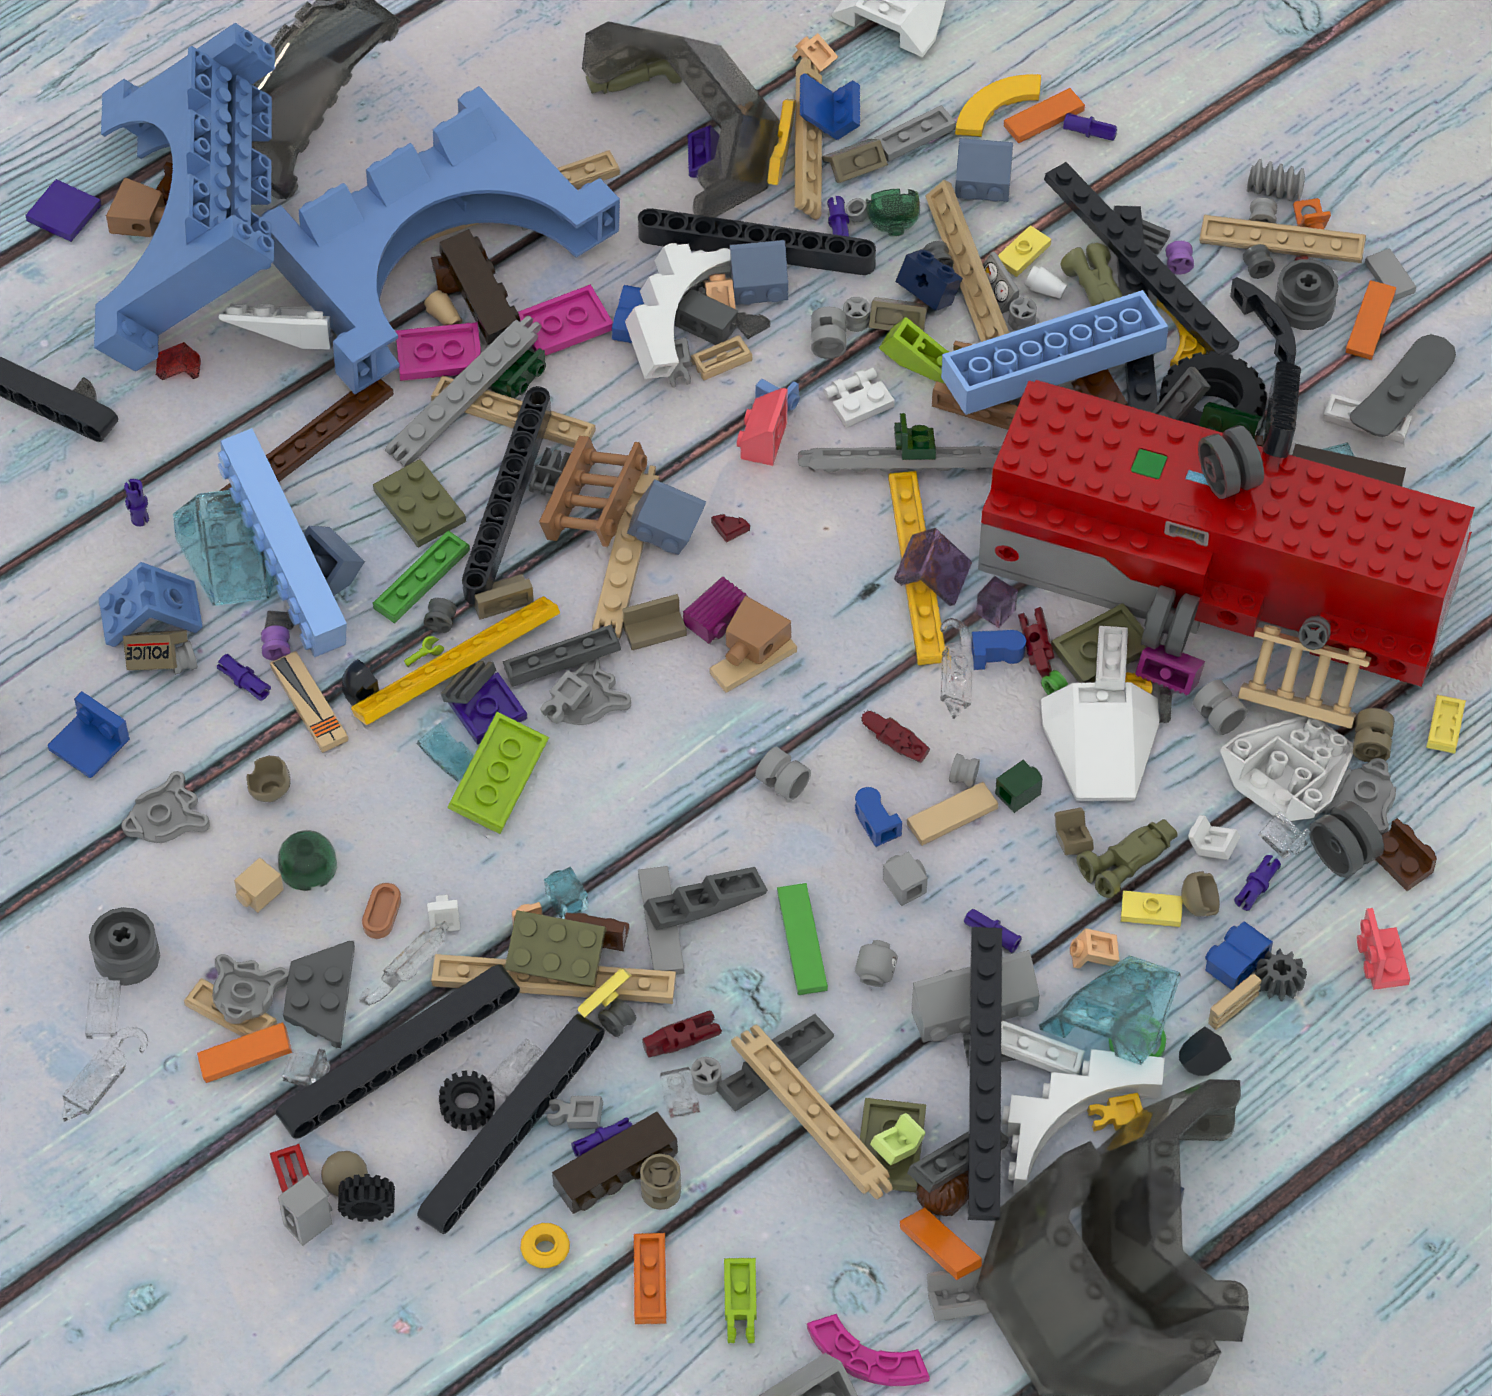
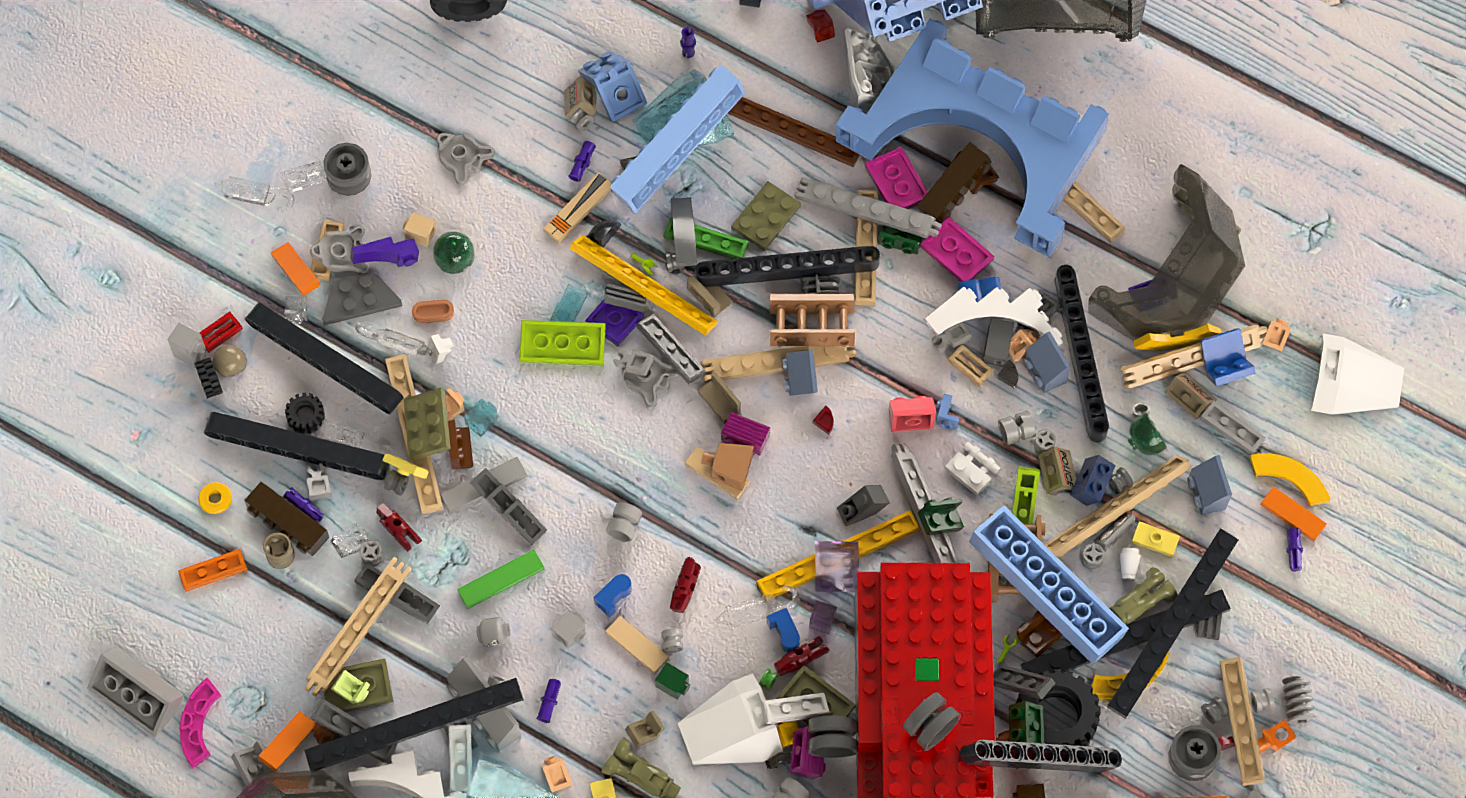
camera: 70 degrees right, 10 degrees up
(90, 737) = (498, 88): blue bracket -> none
(269, 779) = (503, 205): dark tan hair -> none
(275, 642) = (613, 168): medium lavender wheel -> none
(275, 929) = (385, 250): none -> dark purple slope
(334, 556) = (691, 176): sand blue slope -> none
(408, 584) = (683, 232): none -> dark grey slope
(442, 308) = (934, 170): tan cone -> none
(740, 1295) = (213, 629): lime hinge -> none
(838, 218) = (1126, 402): dark purple axle -> none
(863, 518) = (863, 504): none -> dark grey slope
(1179, 257) = (1193, 651): medium lavender wheel -> none
(1251, 299) = (1142, 752): black slope -> none

